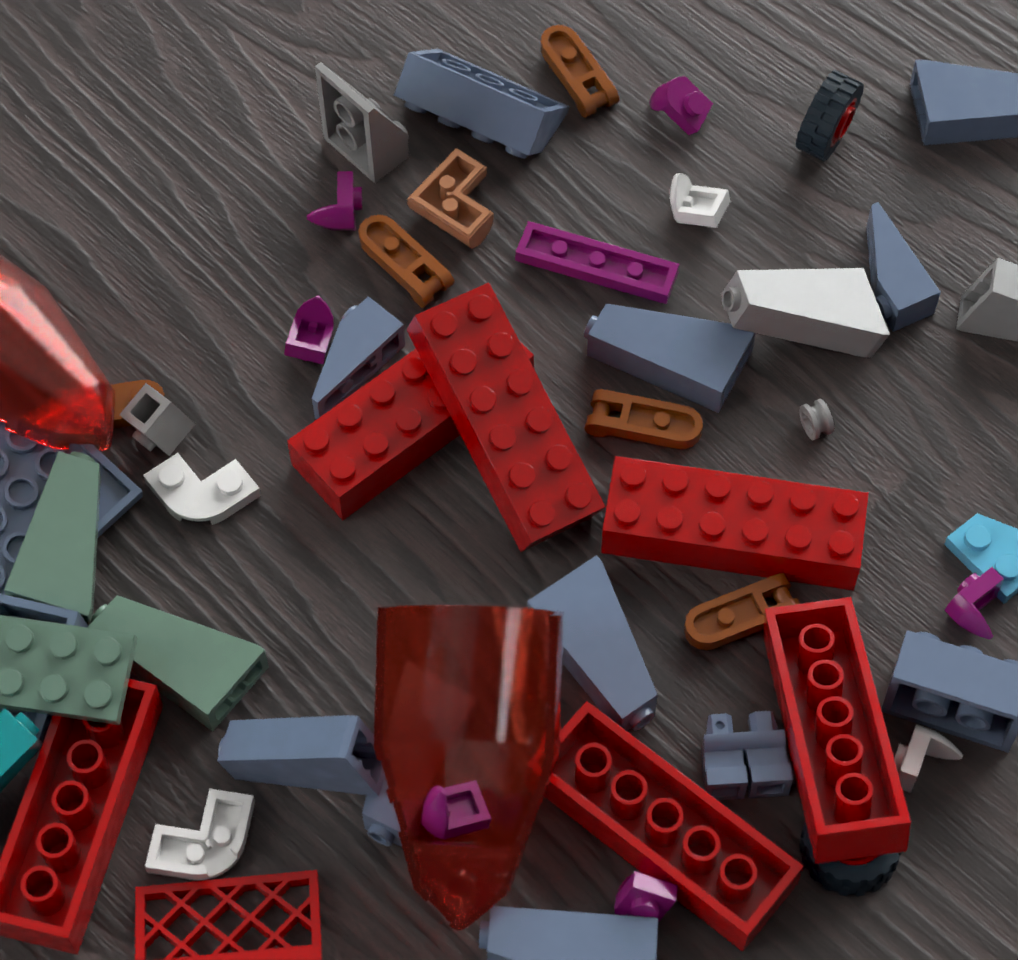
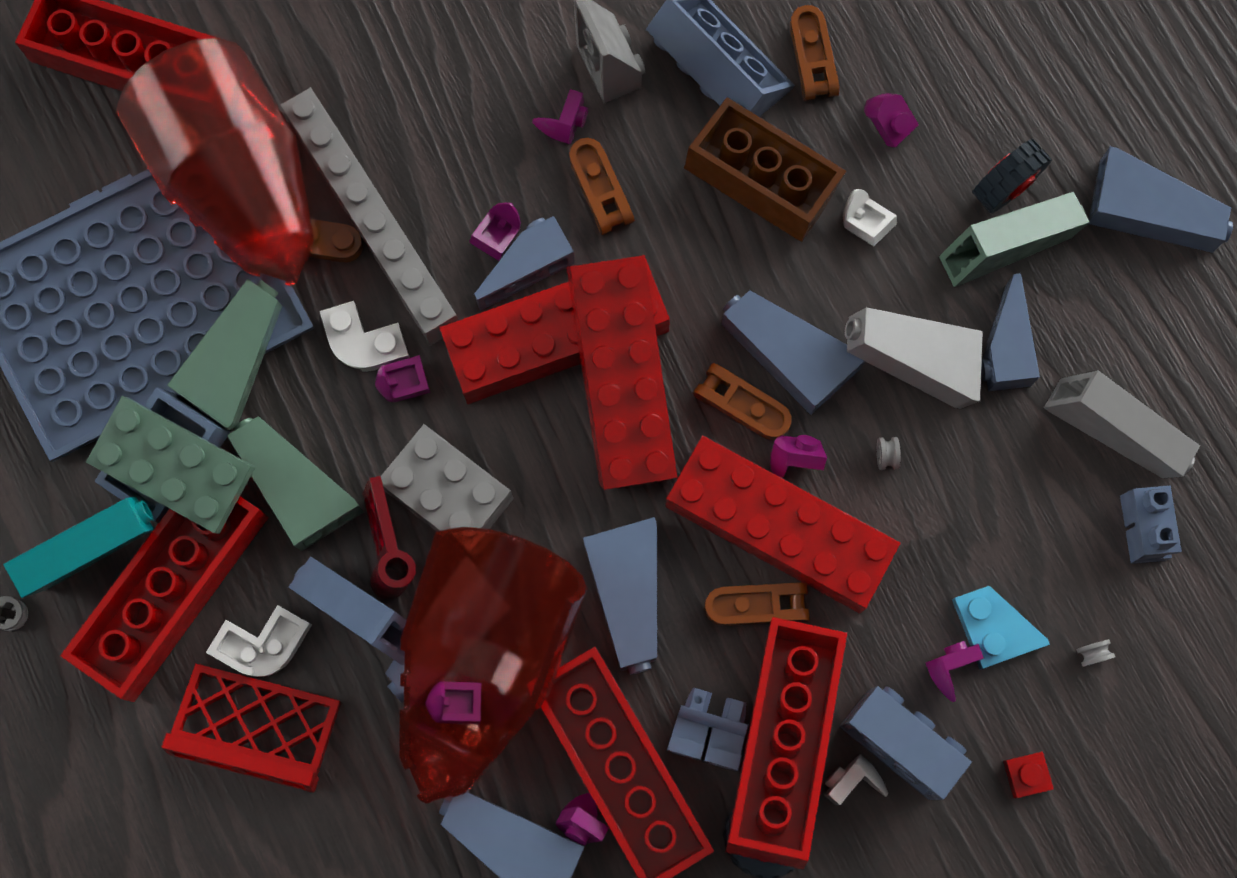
camera: 20 degrees right, 15 degrees up
(156, 420) = (343, 269): light grey brick -> none
(165, 358) = (369, 214): none -> light grey brick
(262, 514) = (402, 380): none -> magenta plate
(294, 653) = (394, 567): none -> dark red piece
(337, 600) = (444, 485): none -> light grey brick
(446, 202) = (653, 141): nougat brick -> none
(572, 187) = (763, 169): none -> reddish brown slope
(597, 262) = (760, 244): magenta plate -> none
(726, 443) = (797, 451): none -> magenta plate
(853, 175) = (1012, 237): none -> slope

